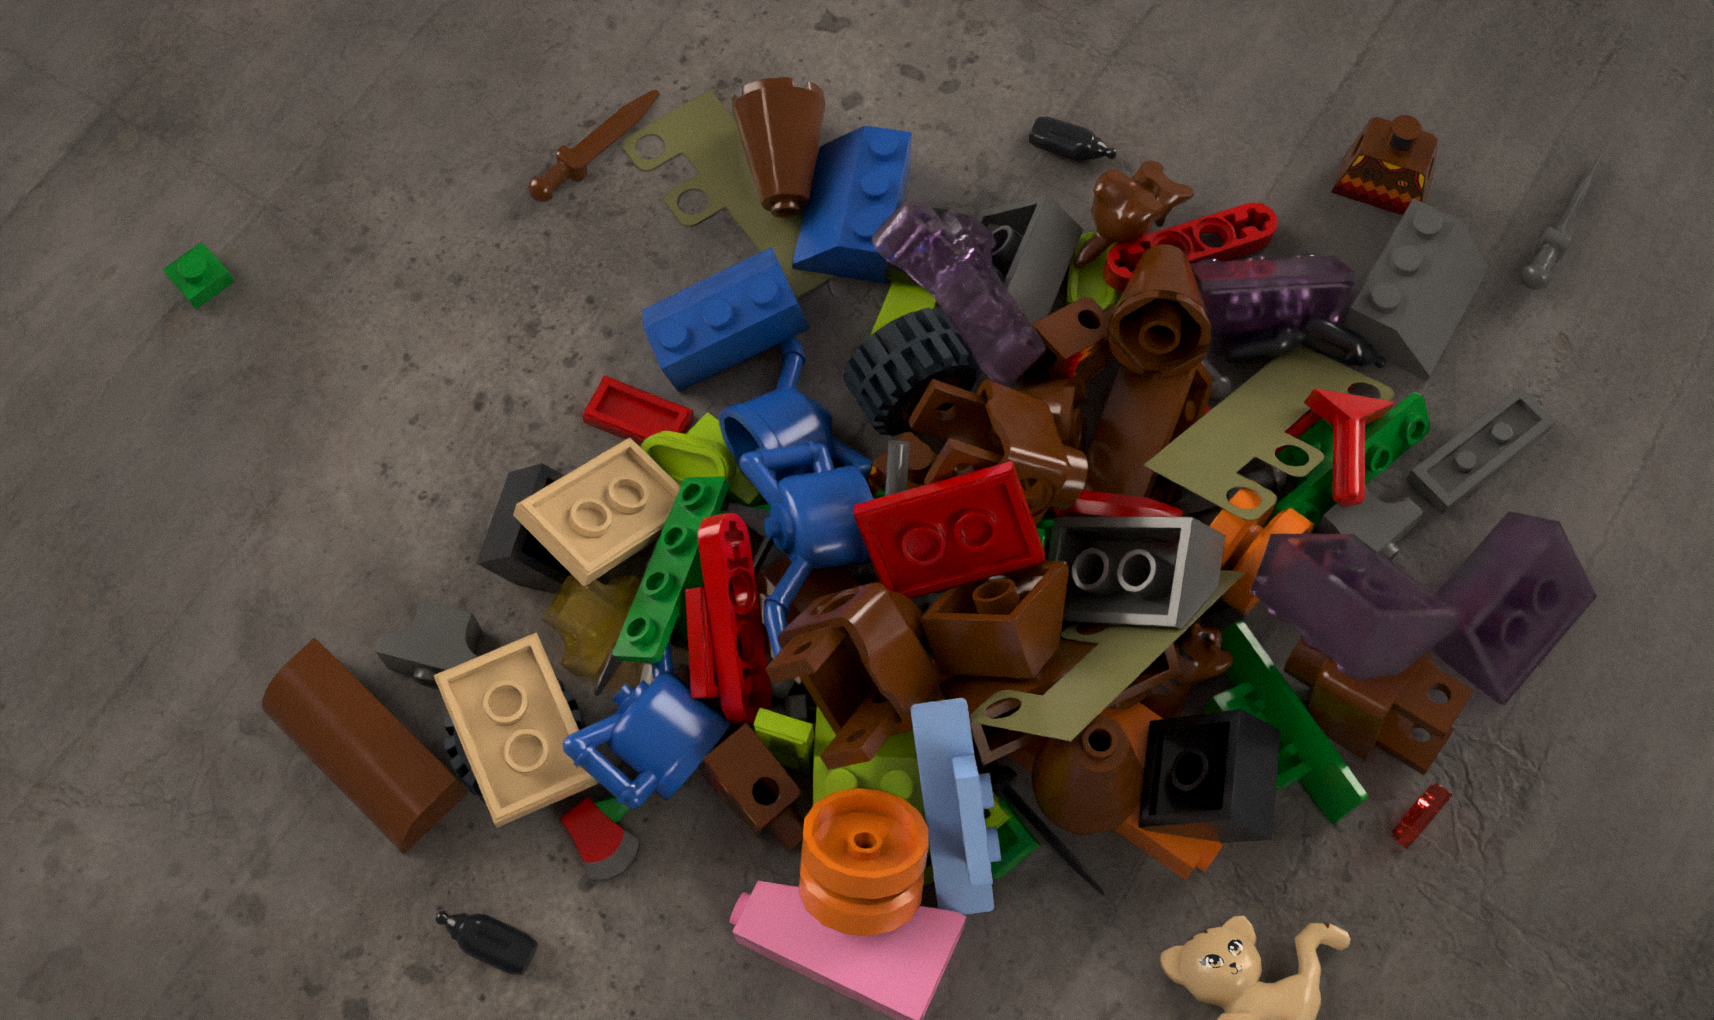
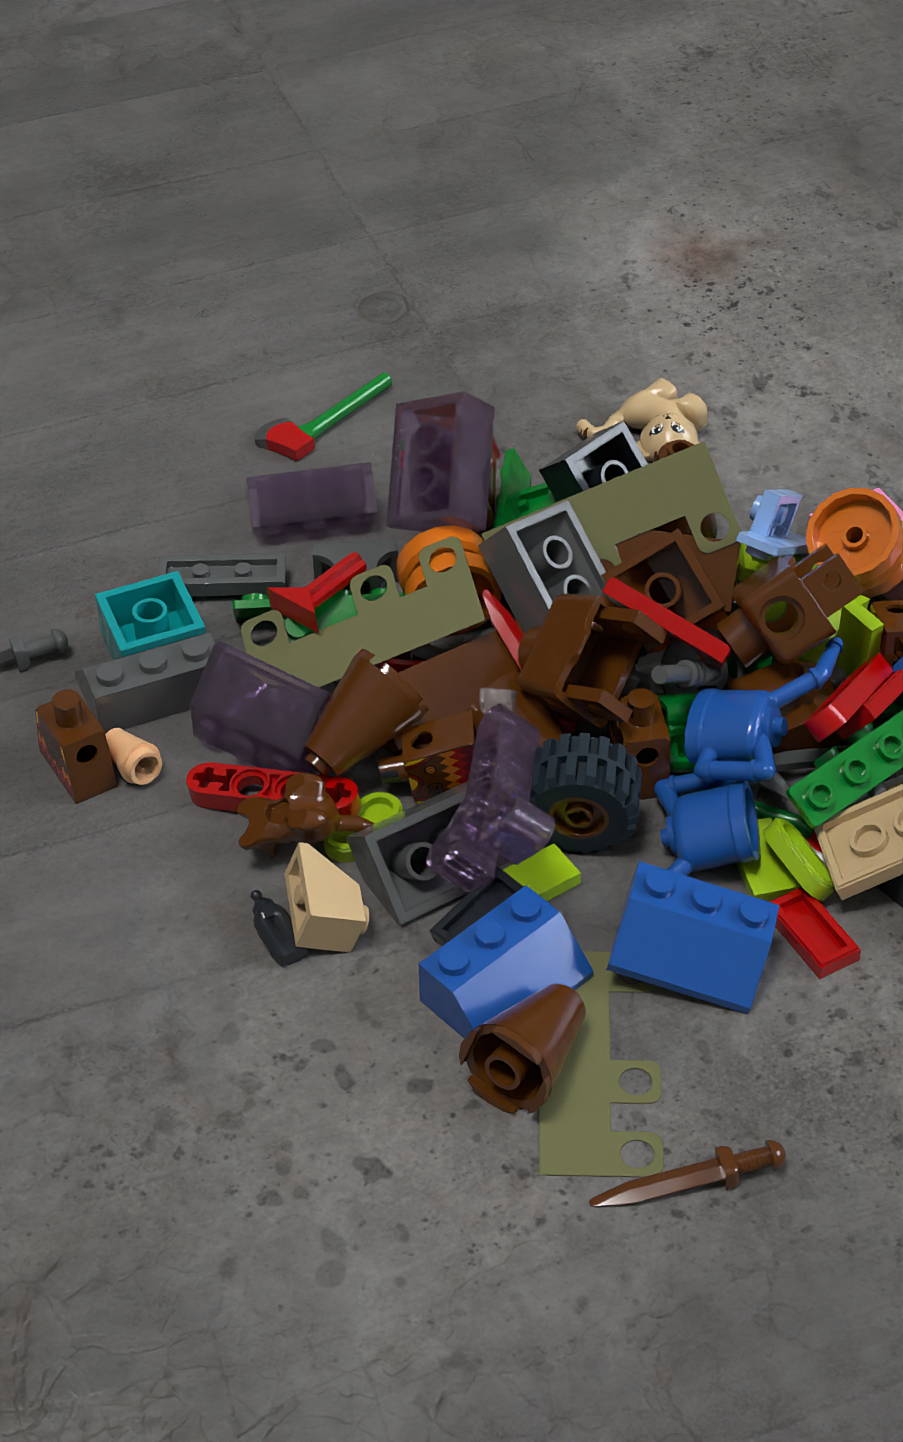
camera: 145 degrees left, 20 degrees down
(1042, 161) = (323, 902): none -> tan slope
(1052, 380) = (490, 697): none -> clear hinge
(1342, 206) = (134, 757): none -> light nougat cone
(1464, 320) = (147, 615): none -> teal slope
(1615, 694) = (296, 442): none -> piece

